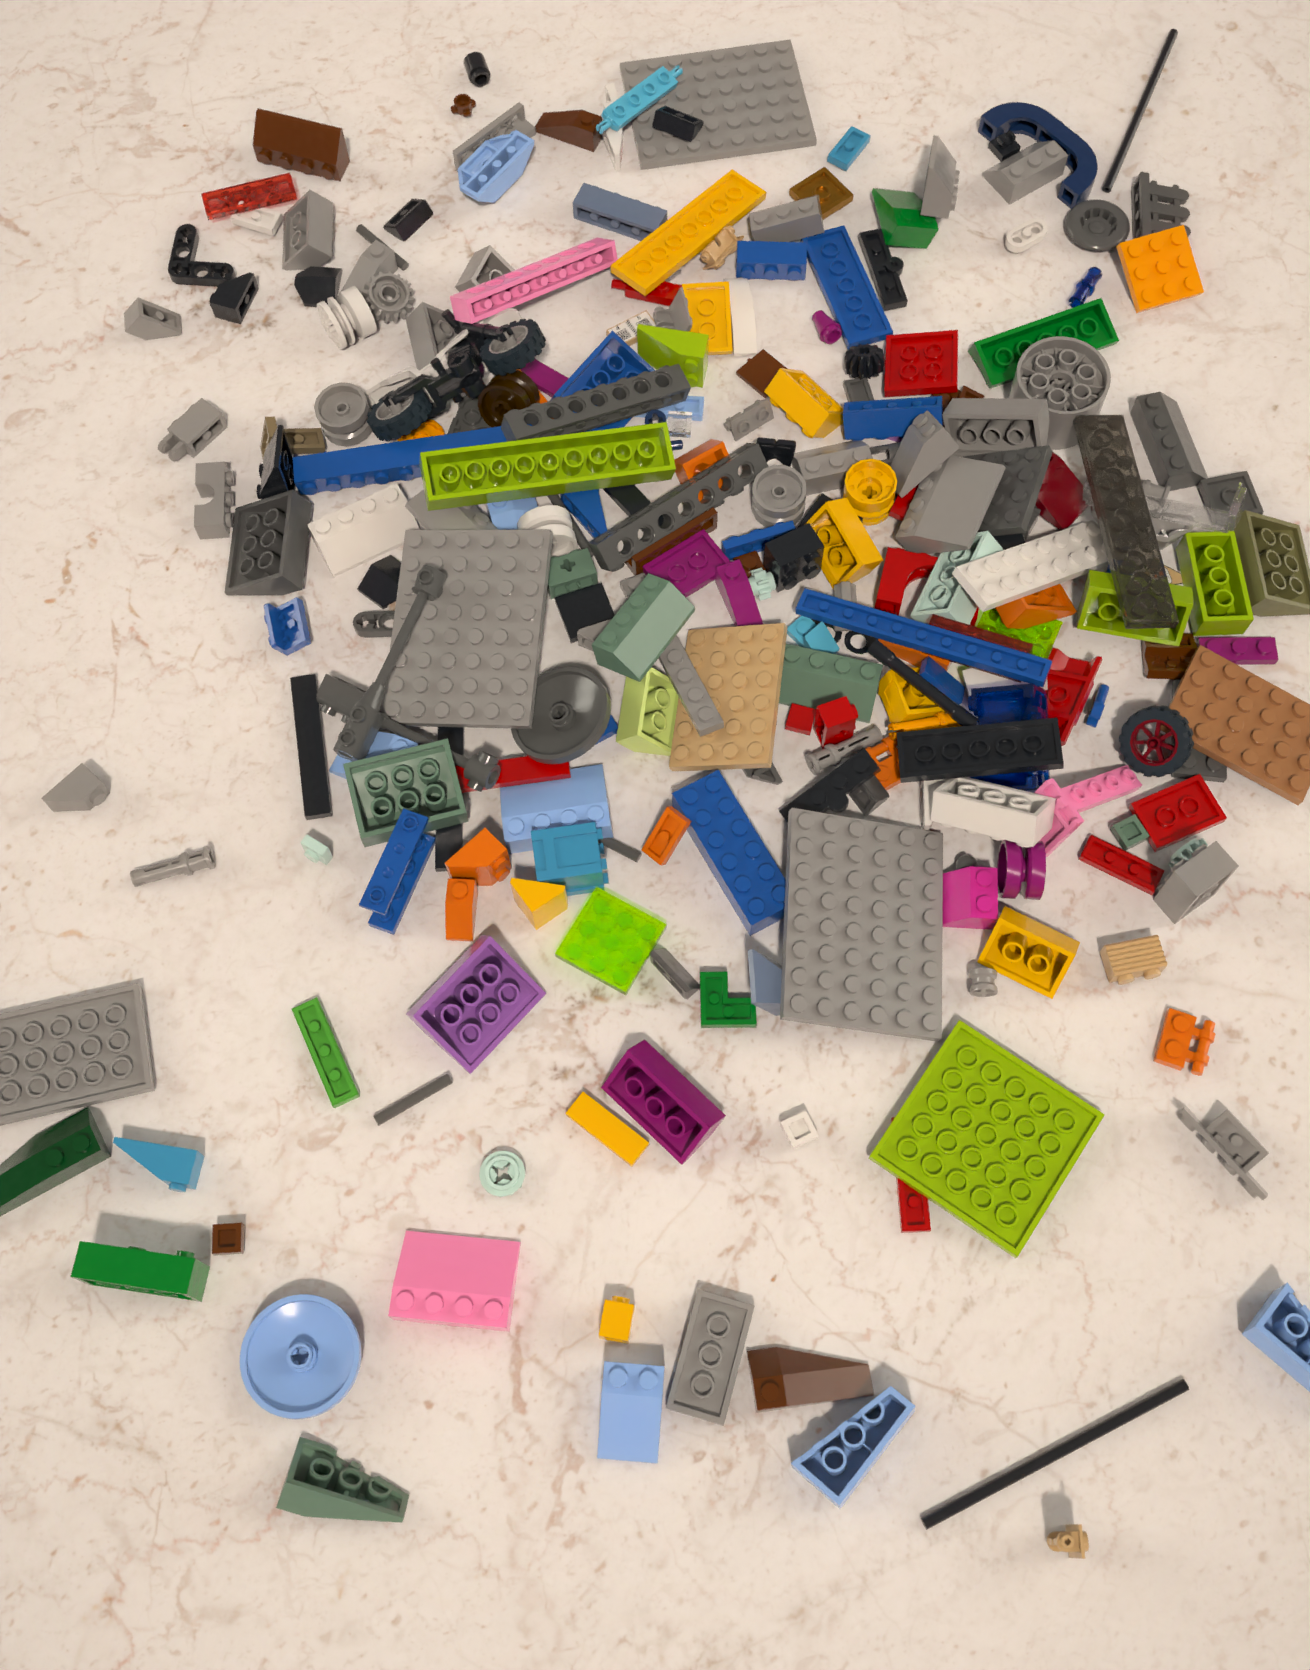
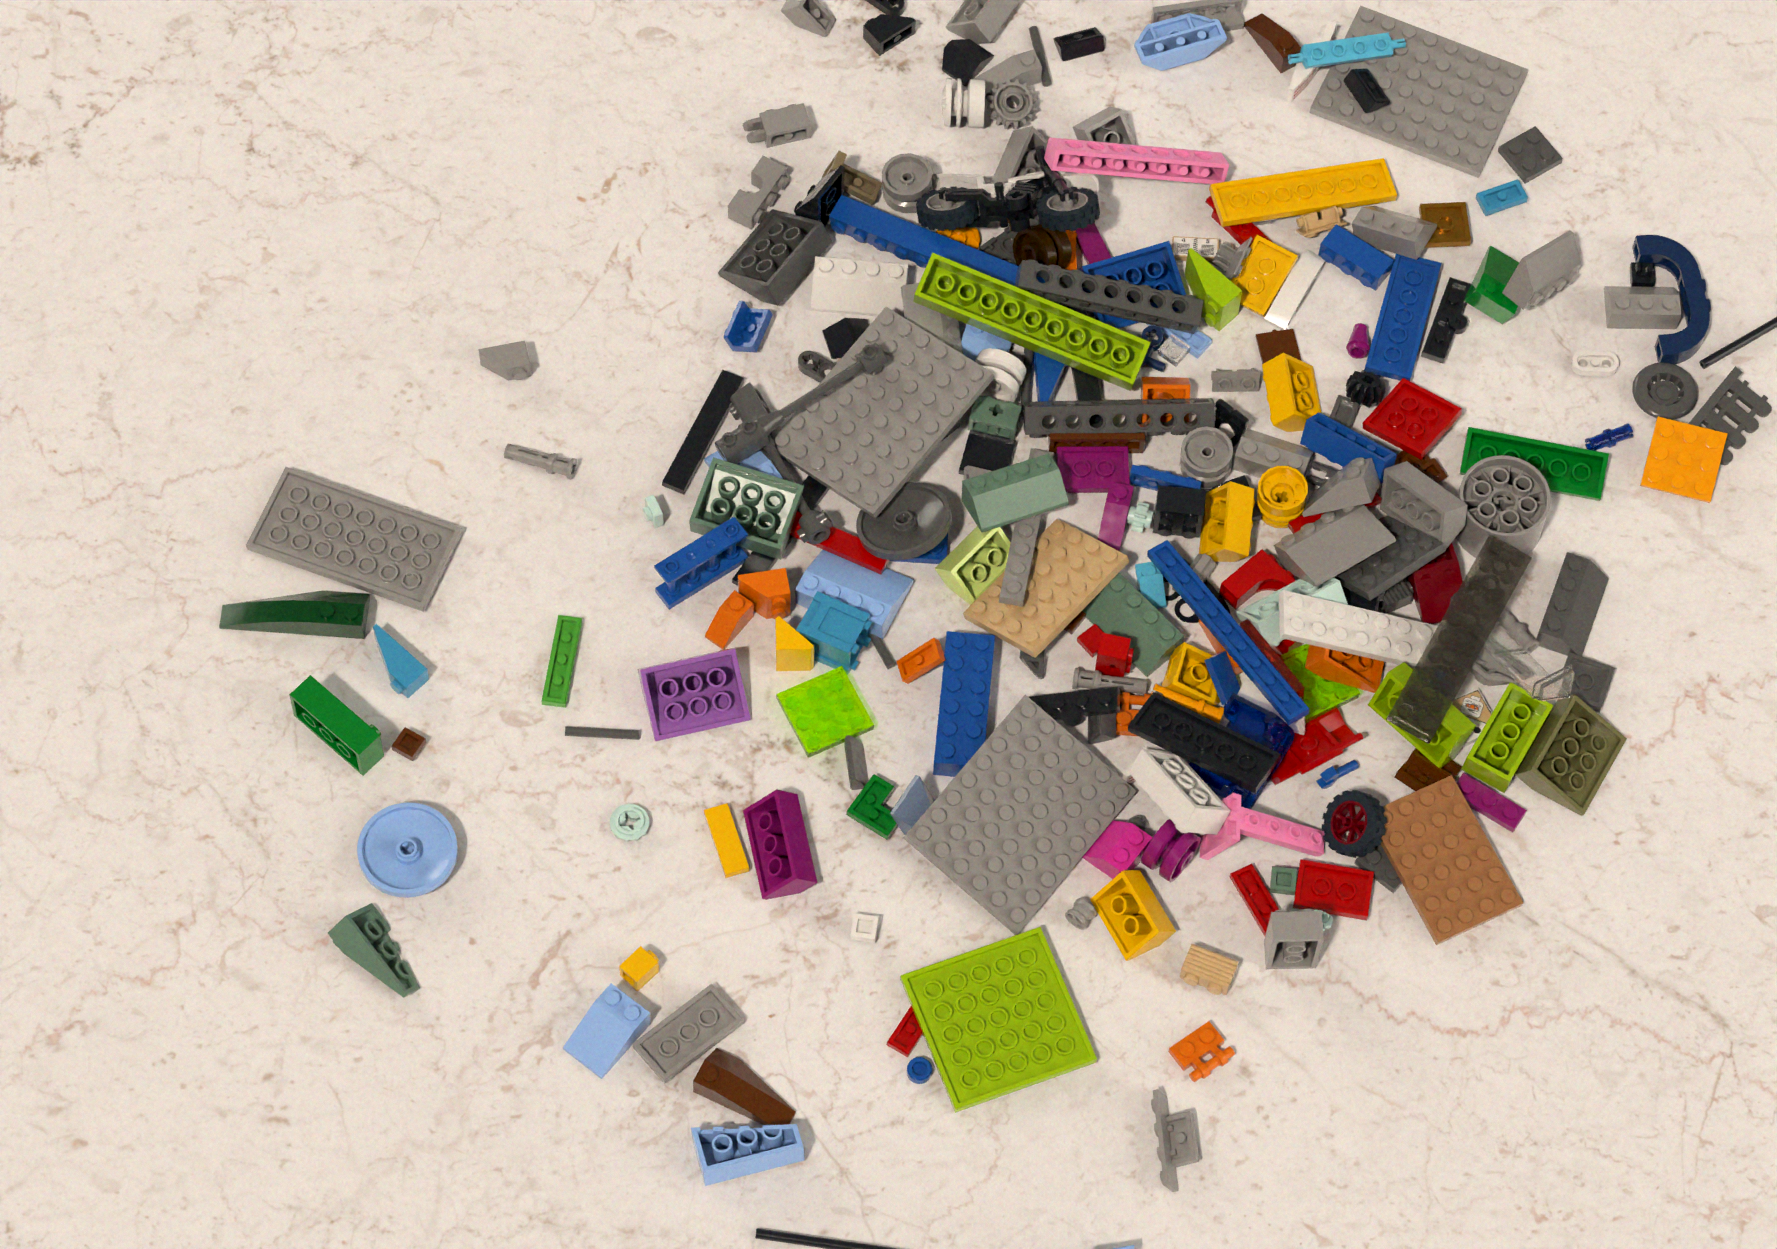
camera: 30 degrees right, 5 degrees down
(455, 1281) = (545, 872): bright pink slope -> none
(617, 212) = (1256, 139): sand blue brick -> none
(750, 562) = (1145, 495): reddish brown plate -> none
(843, 104) = (1530, 154): none -> dark grey plate
(889, 659) = (1190, 634): black piece -> none
(951, 1238) = (919, 1070): none -> blue tile

